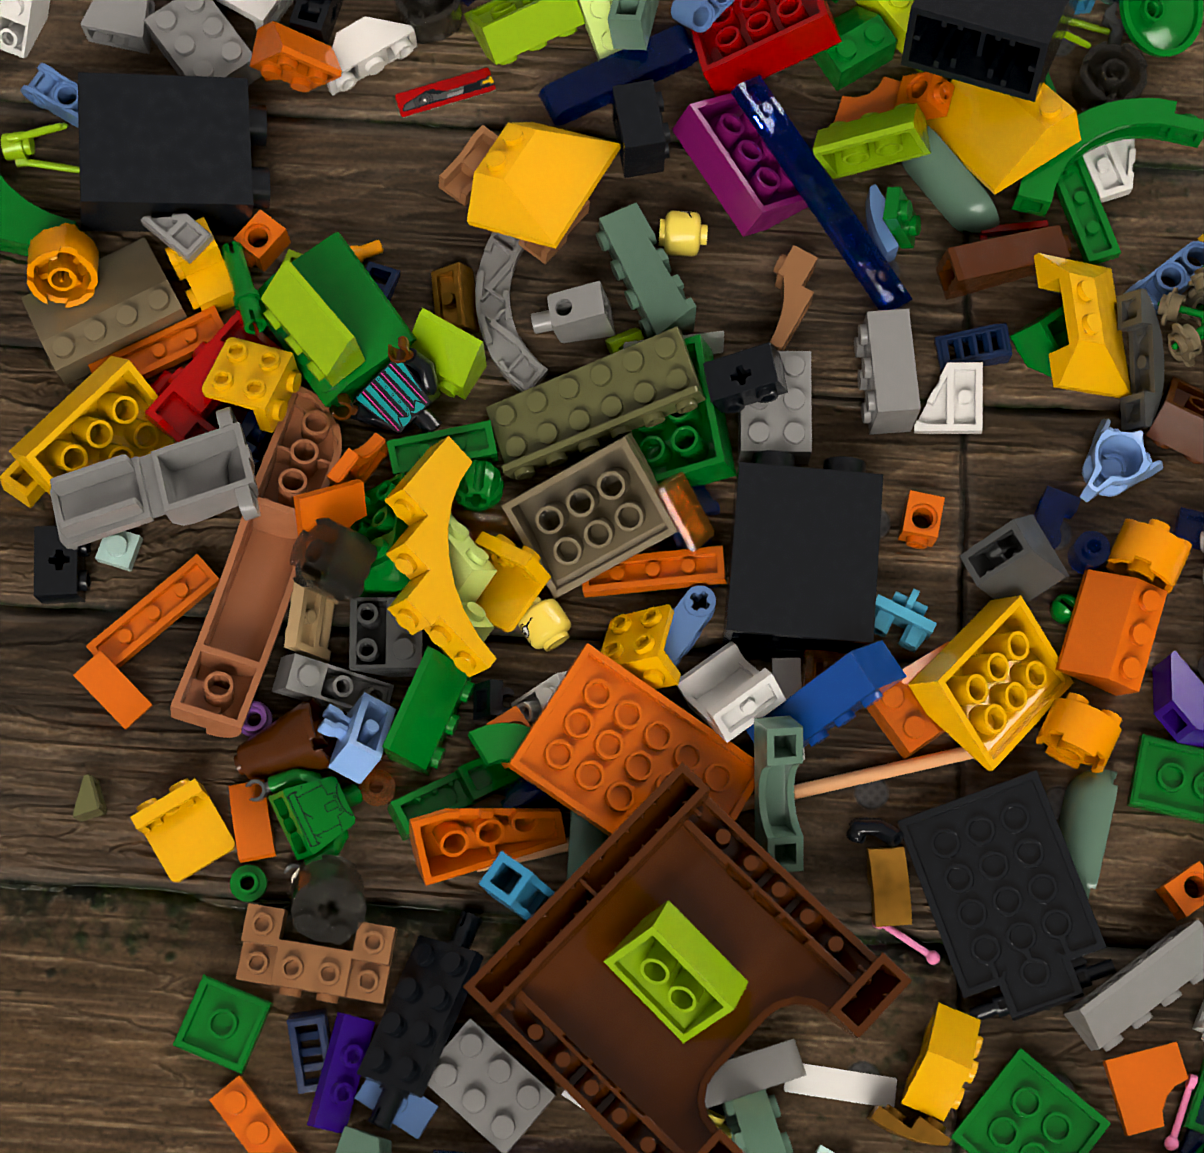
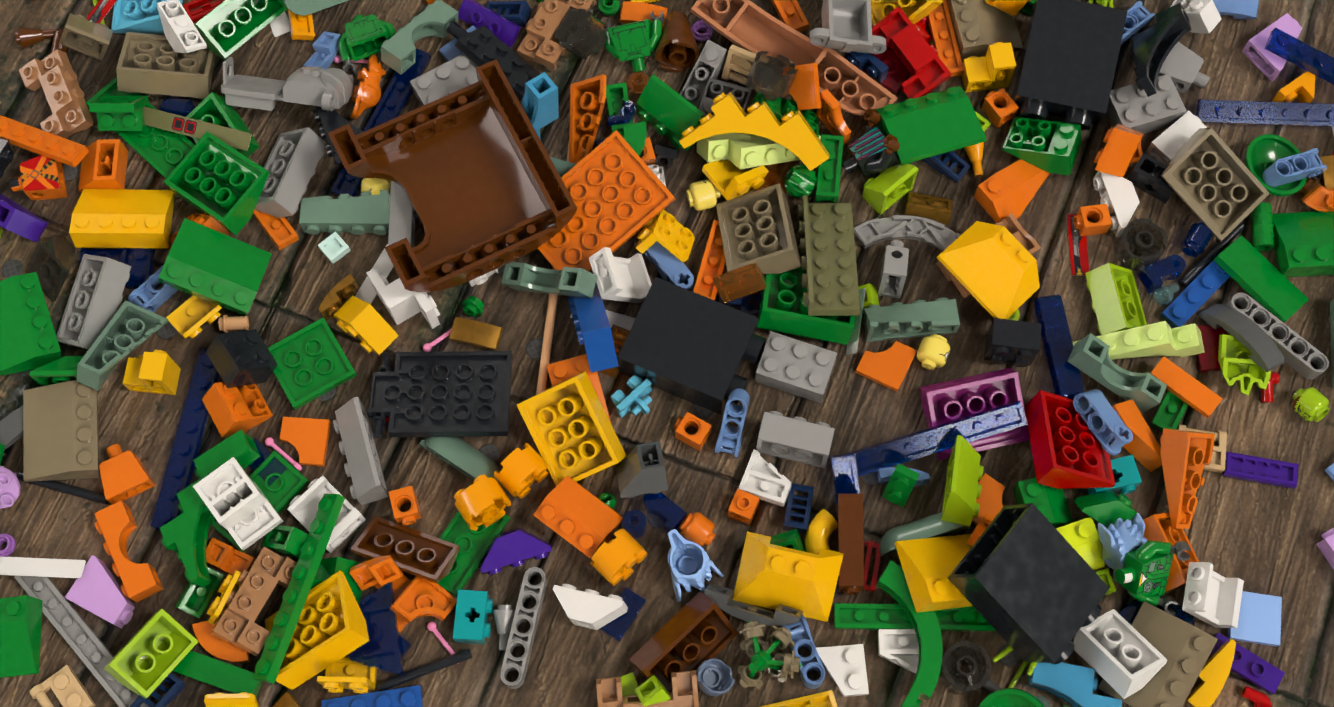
camera: 110 degrees right, 5 degrees down
(100, 46) = (1155, 44): none -> black arch
(180, 234) = (1006, 48): light grey tile -> none
(246, 297) = (957, 78): green pin -> none
(254, 379) = (900, 68): yellow bracket -> none
(307, 163) = (1044, 143): none -> green slope
(310, 326) = (923, 102): lime slope -> none
(358, 736) = (667, 70): light blue brick -> none
(386, 193) = (1010, 190): none -> orange wedge
(404, 63) = (1099, 214): none -> orange brick
(450, 785) = (624, 116): none -> clear blue arm
(677, 972) = (465, 183): lime slope -> none
(723, 290) = (887, 366): none -> orange tile
(745, 378) = (813, 341): black brick -> none
(792, 277) = (882, 410): medium nougat slope -> none
(847, 907) = (473, 306): none -> green plate
(876, 827) = (516, 332): black arm -> none
(890, 1031) = (402, 302): none -> white bracket
(897, 460) = (731, 437): none -> medium blue piece
(913, 293) = (845, 474): none -> clear blue tile
(1005, 416) = (743, 507): none -> orange brick
(1011, 307) = (820, 531): none -> yellow cylinder
(1060, 467) = (697, 529): none -> orange head
(1154, 768) = (482, 502): none -> light orange brick
(1161, 227) = (846, 668): none -> white wing

